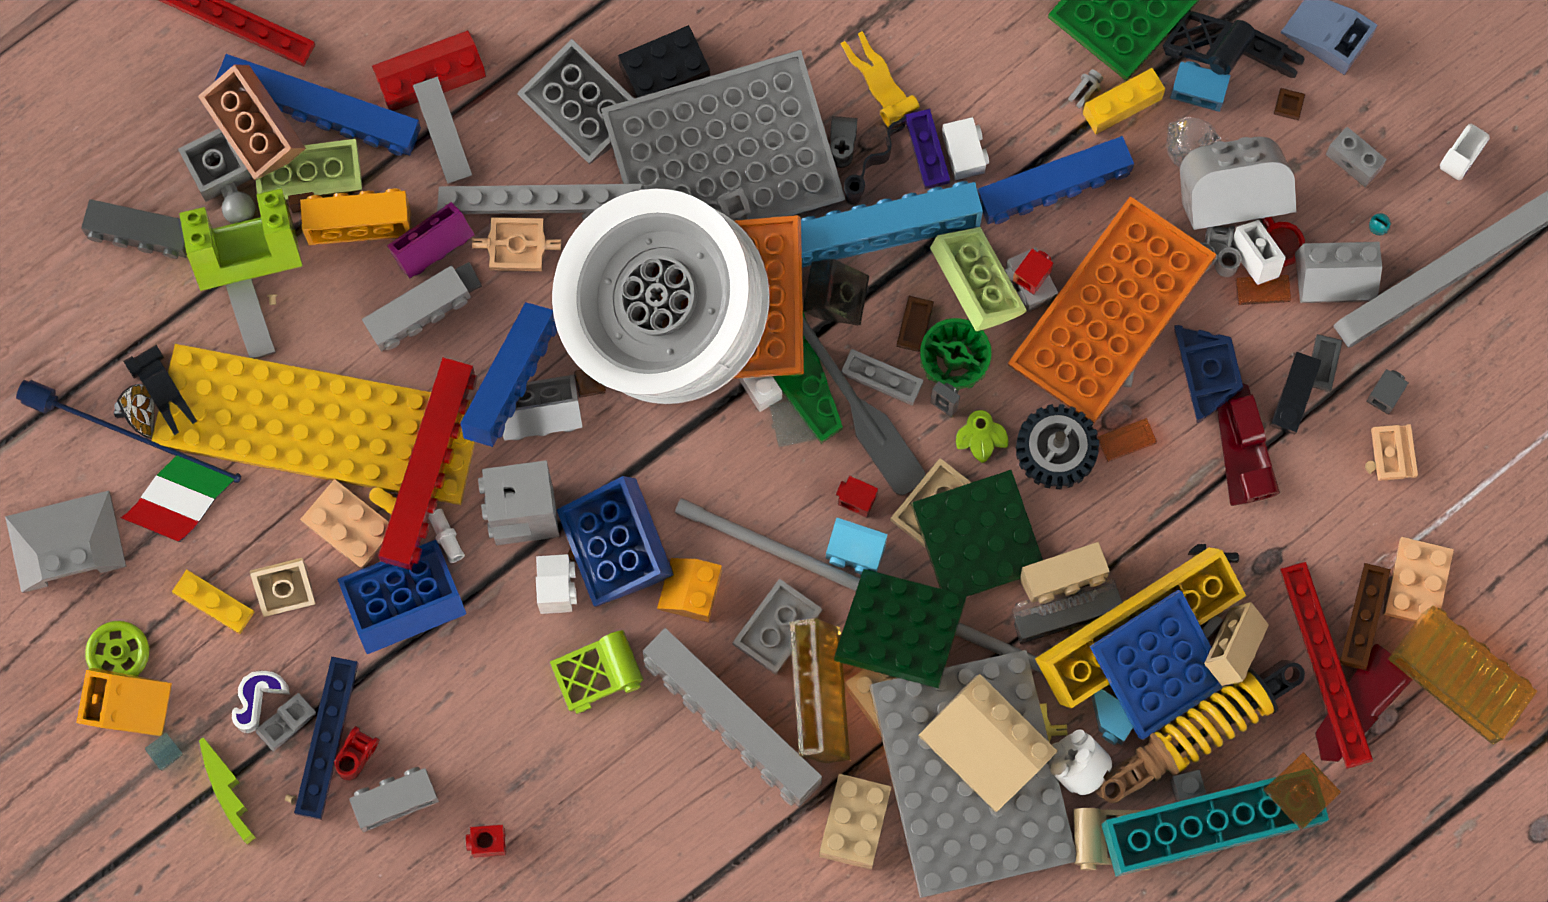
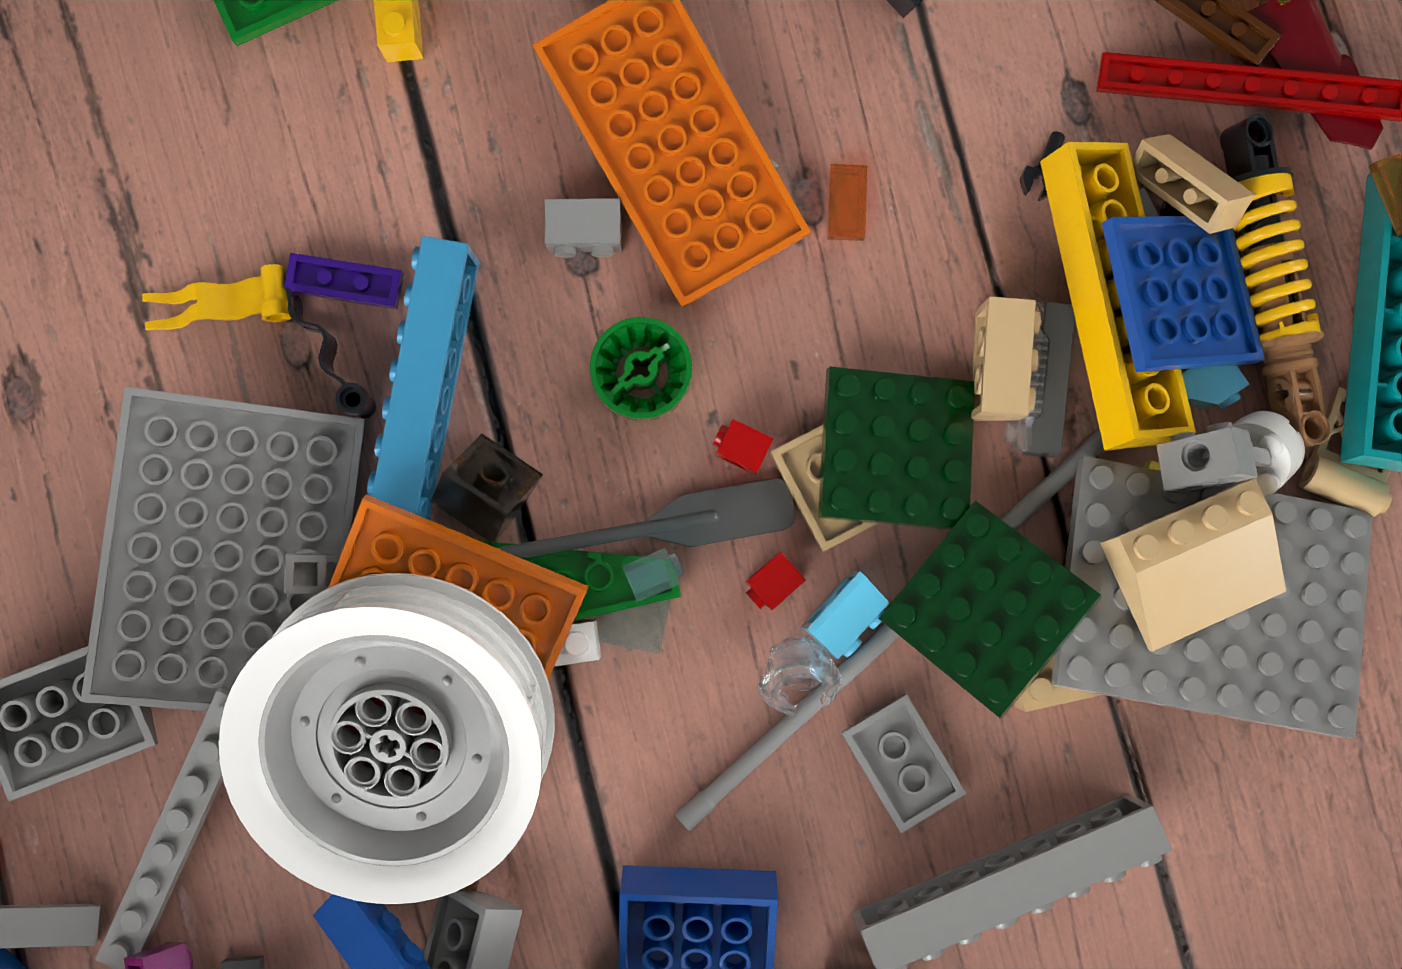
camera: 70 degrees left, 10 degrees up
(516, 244) = (224, 888): light nougat plate -> none
(664, 63) = (58, 578): black brick -> none
(691, 588) = (805, 856): light orange slope -> none
(810, 529) = (801, 666): none -> clear helmet
(819, 691) = (1027, 755): clear yellow brick -> none
(828, 415) = (653, 574): none -> clear light blue brick
(842, 137) = (278, 385): dark grey piece -> none
(855, 821) = (1206, 776): tan brick -> none
(882, 377) = (627, 478): light grey plate -> none
(914, 323) = (573, 402): reddish brown tile -> none
(935, 440) = (742, 446): none -> red brick
(945, 398) = (697, 407): dark grey plate -> none
(964, 148) = (365, 231): white brick -> none
(977, 278) = (551, 294): yellowish green slope -> none
(981, 439) = (767, 384): lime plate -> none
(1033, 270) = (578, 214): red brick -> none
(1055, 180) = (463, 132): blue brick -> none
(1057, 446) = (822, 293): wheel -> none
(1057, 718) = (1230, 458): none -> light grey brick
(1092, 81) = (350, 28): light grey arm -> none
(1187, 785) = (1342, 330): dark grey brick -> none
(1209, 369) = (801, 56): dark blue wing -> none
(1244, 451) = (918, 59): dark red panel -> none

